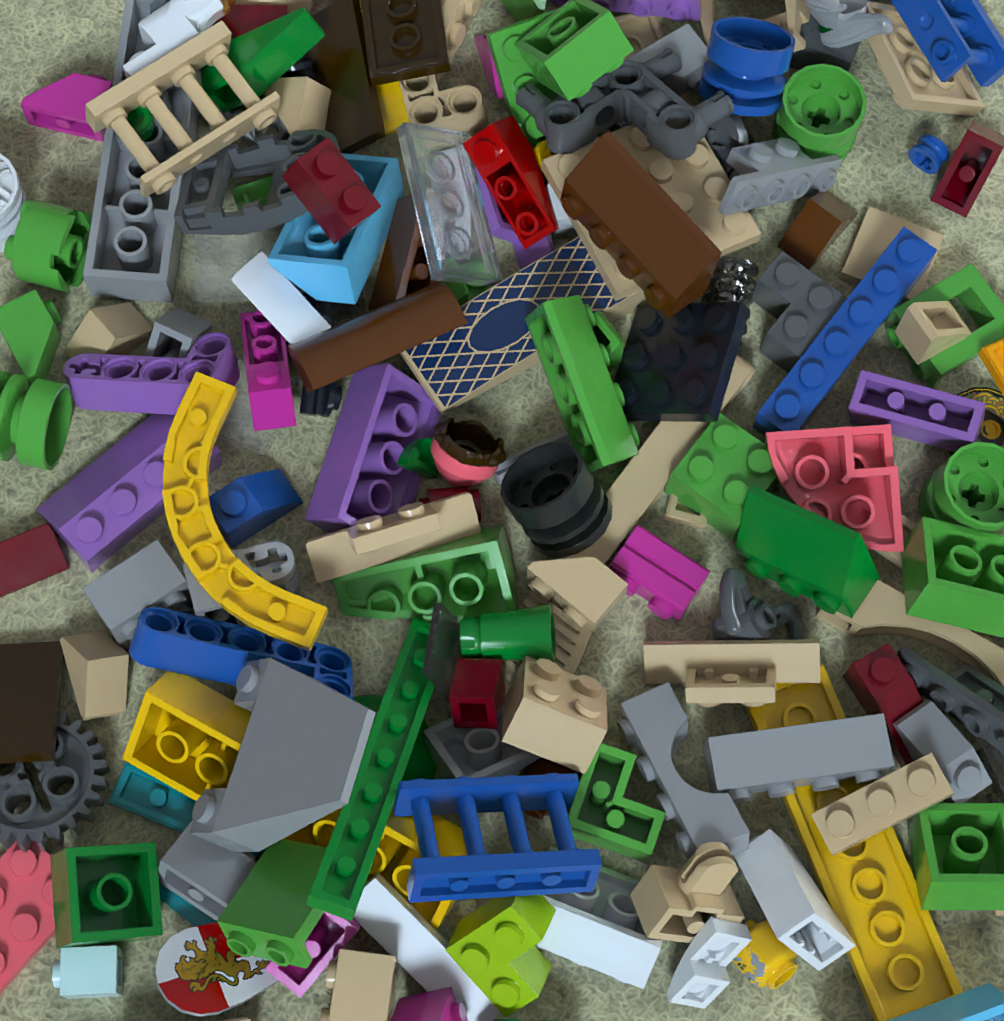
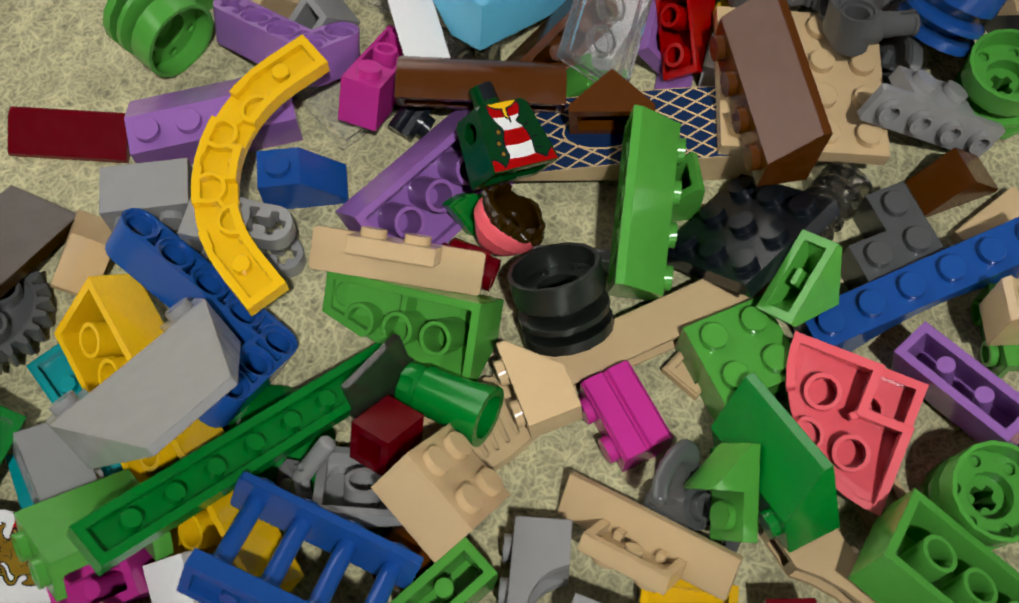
camera: 35 degrees right, 5 degrees down
(431, 383) = (502, 139): none -> dark green torso
(431, 753) = (296, 475): none -> light grey bar
(505, 304) = (605, 106): none -> reddish brown slope
(752, 386) = (805, 281): none -> bright green slope
(781, 583) = (733, 478): none -> bright green slope

